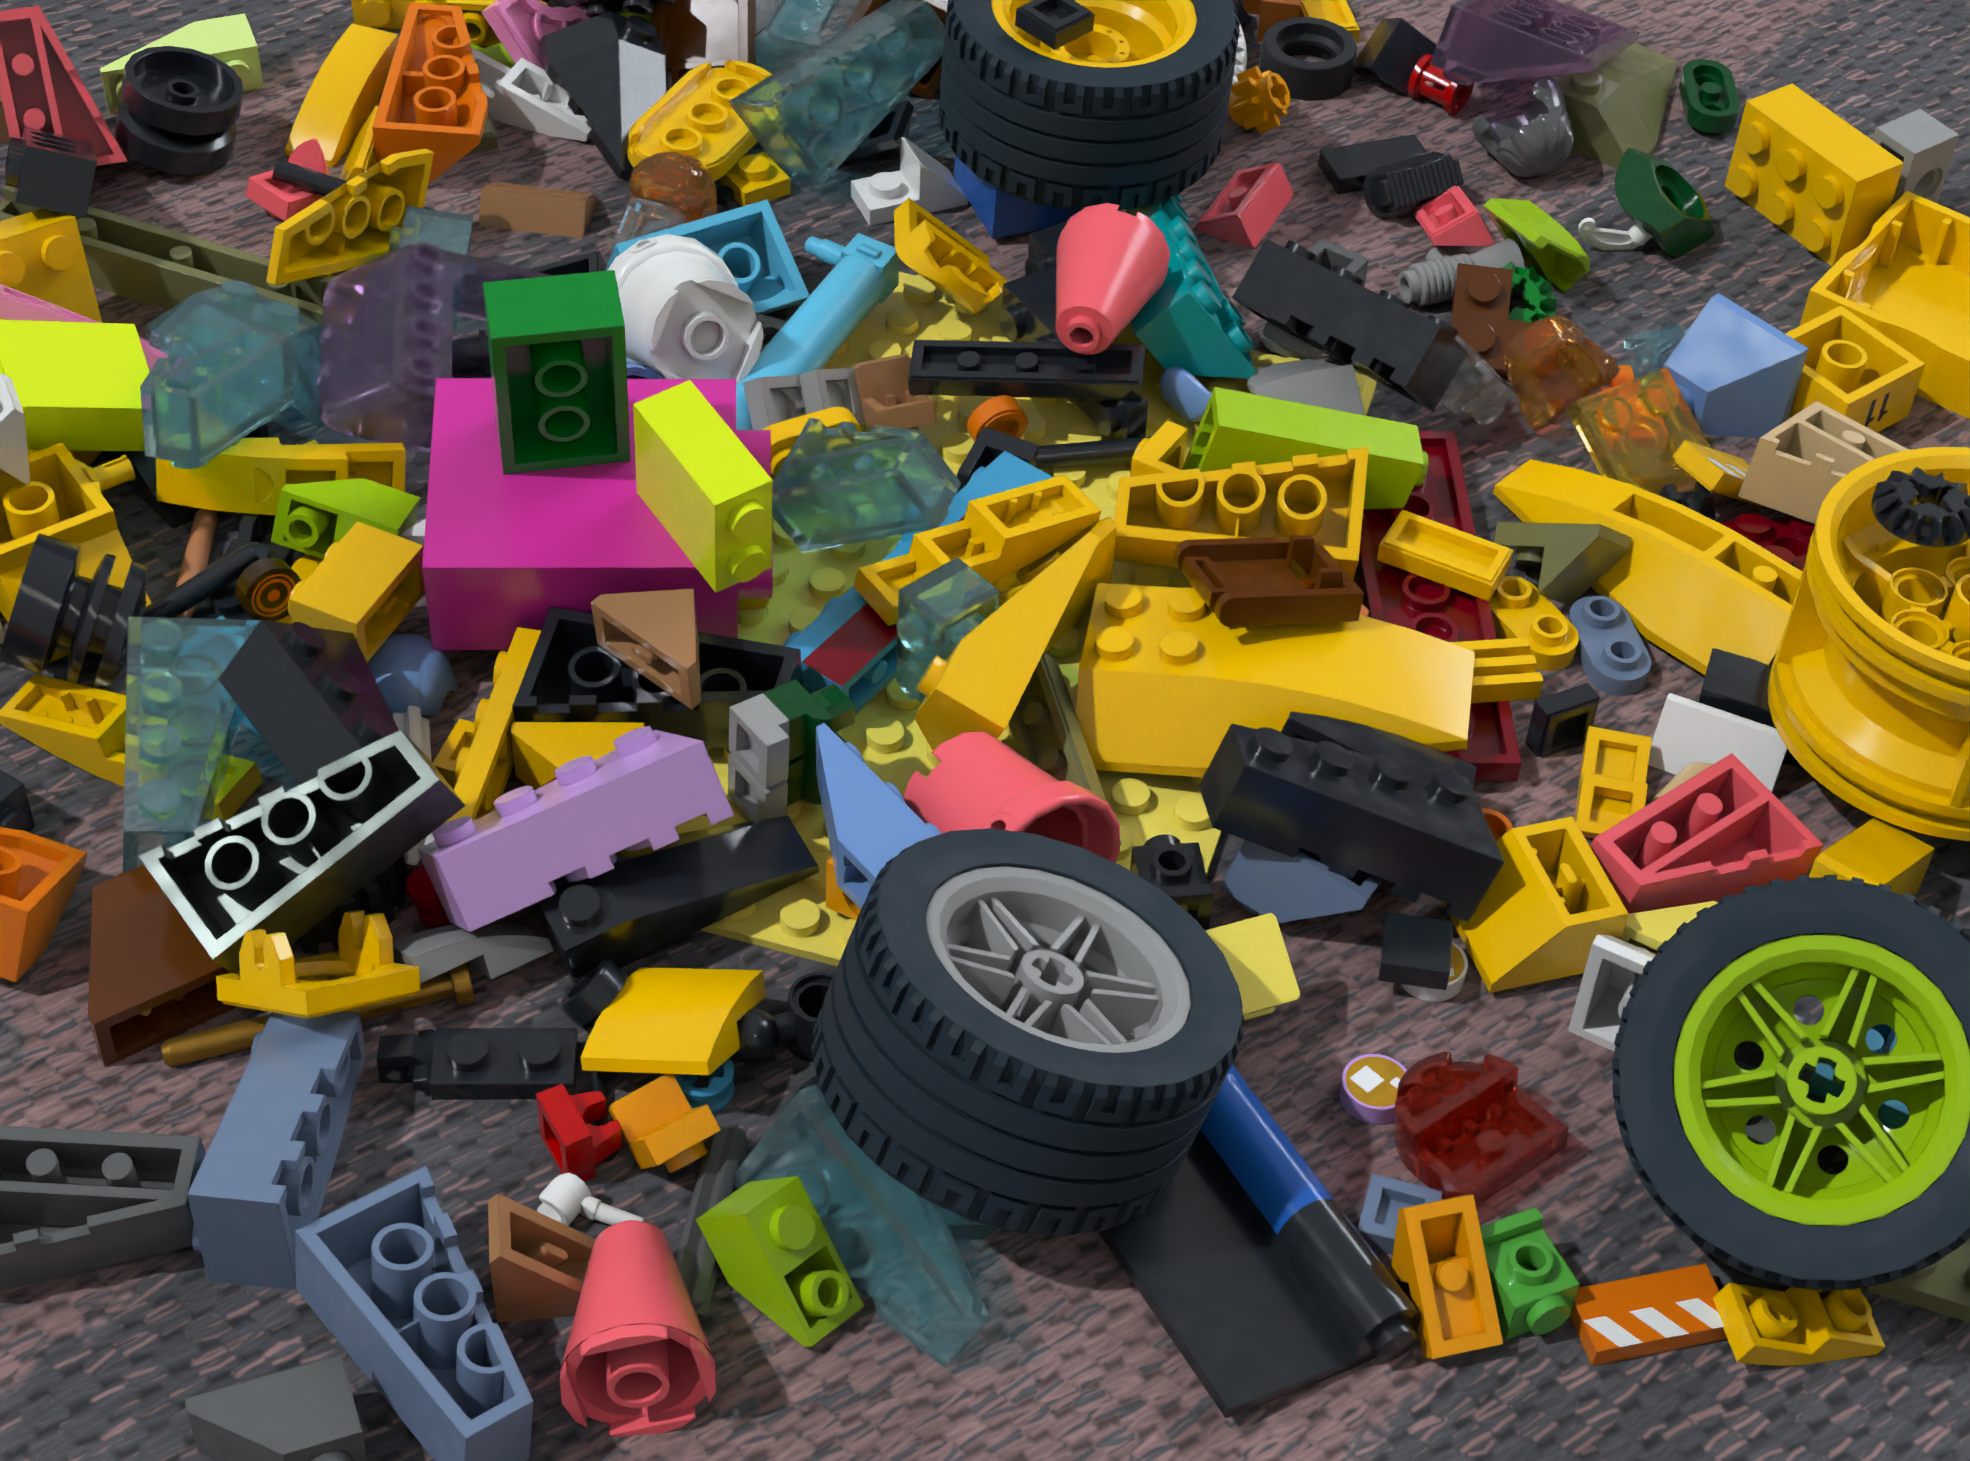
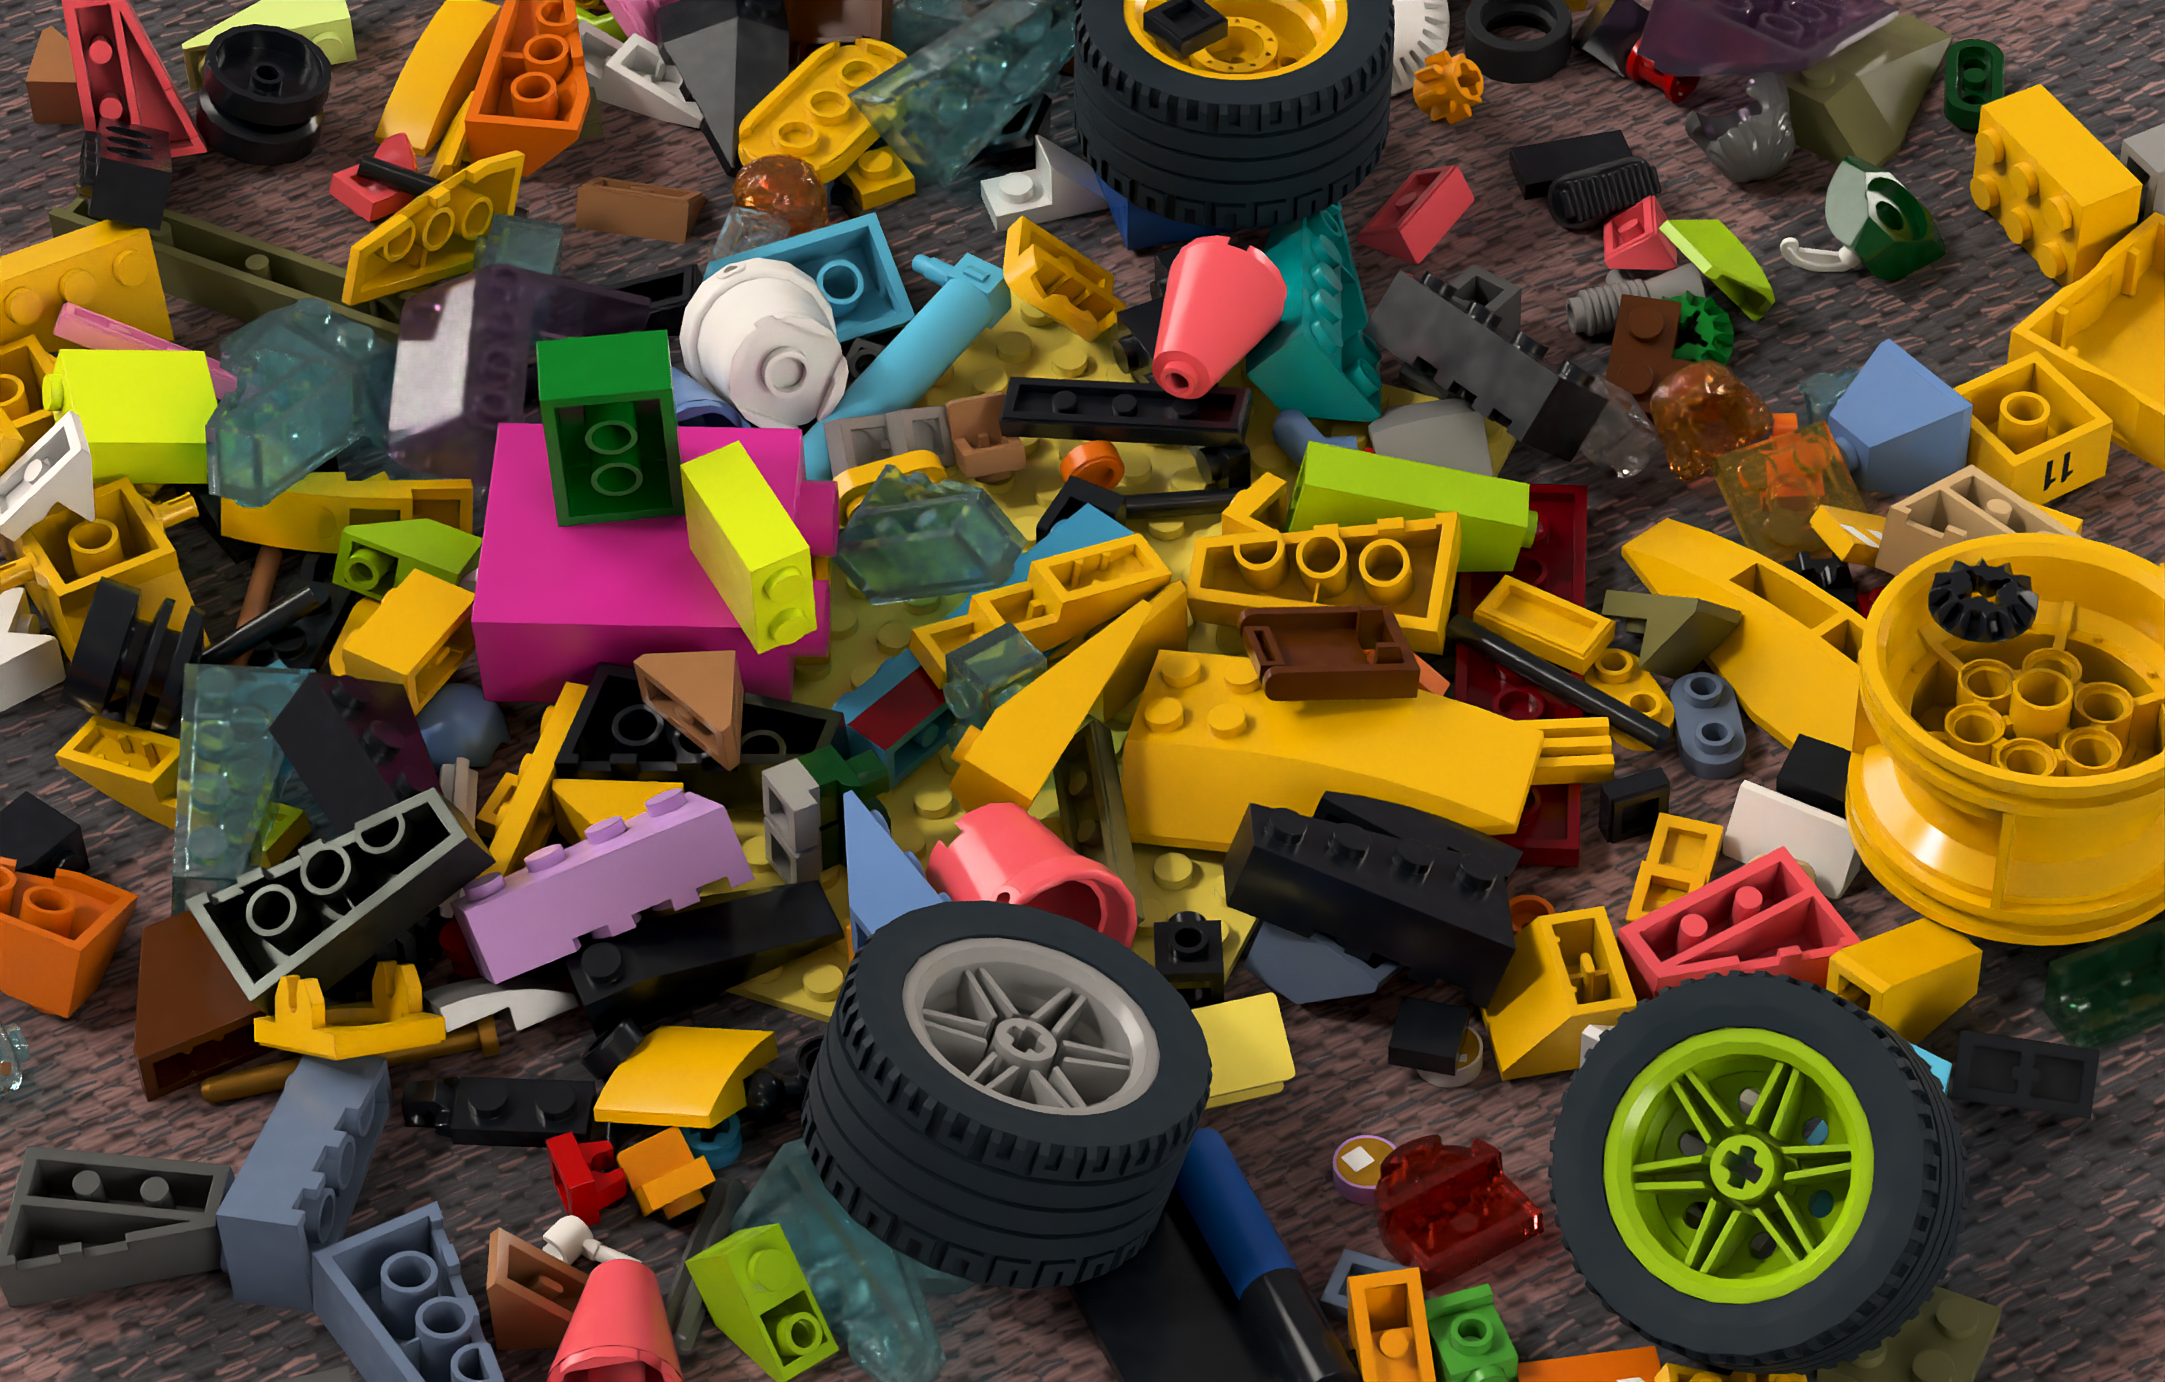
camera: 10 degrees right, 0 degrees up
(266, 589) = (322, 633): dark brown tile -> none
(1470, 606) = (1558, 681): none -> black bar

